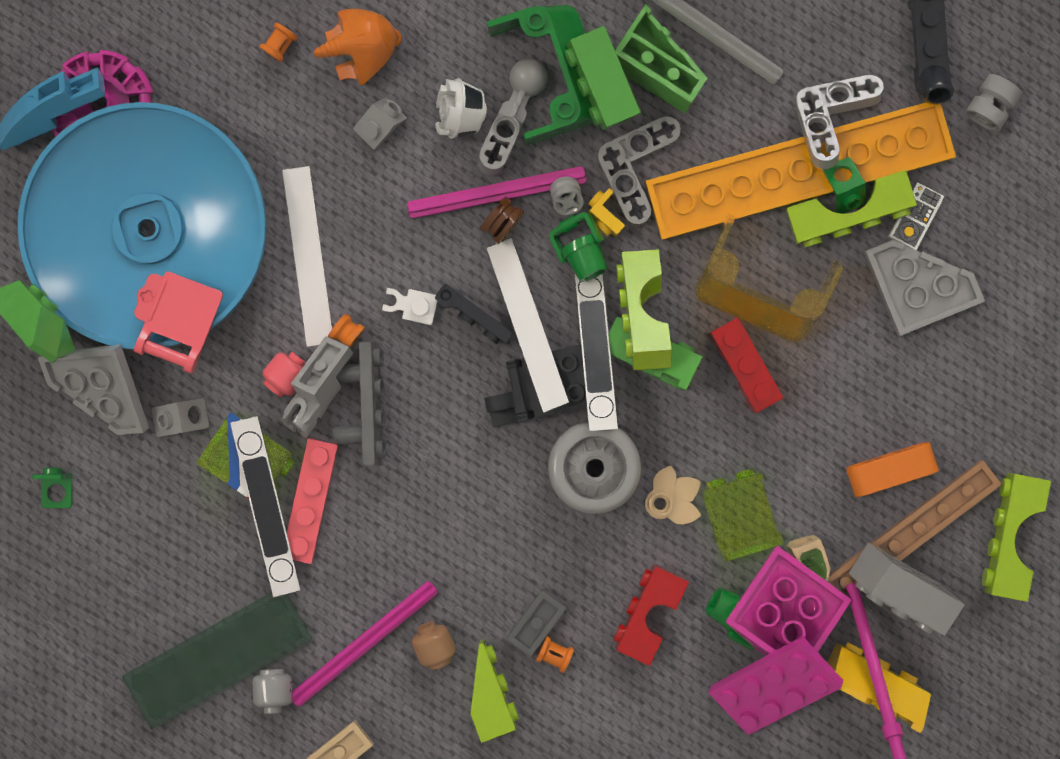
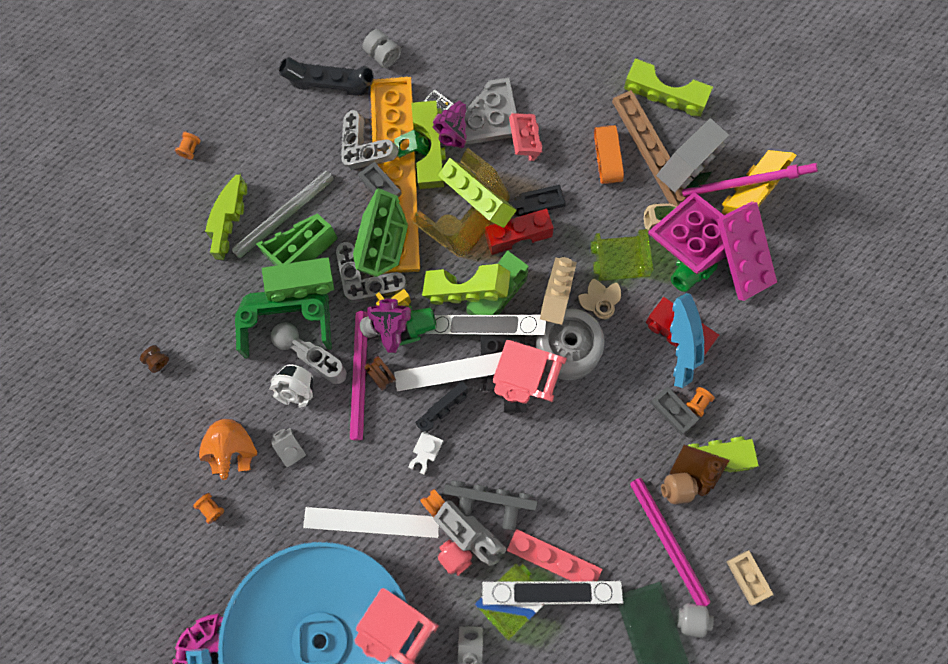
camera: 75 degrees left, 15 degrees down
(464, 671) = (702, 466): none -> reddish brown hinge
(536, 410) = (522, 370): none -> coral piece
(573, 217) = (390, 322): none -> magenta rock
(633, 625) = (688, 333): none -> dark azure slope
(660, 438) = (558, 290): none -> tan brick
(692, 174) = (380, 235): none -> bright green wedge
(763, 317) = (477, 194): none -> lime arch
(772, 154) = (375, 178): none -> dark grey plate
(798, 381) = (539, 199): none -> black hinge
(873, 608) = (699, 180): none -> dark green sticker
(884, 236) = (451, 125): none -> magenta rock
(893, 345) = (525, 135): none -> coral bracket

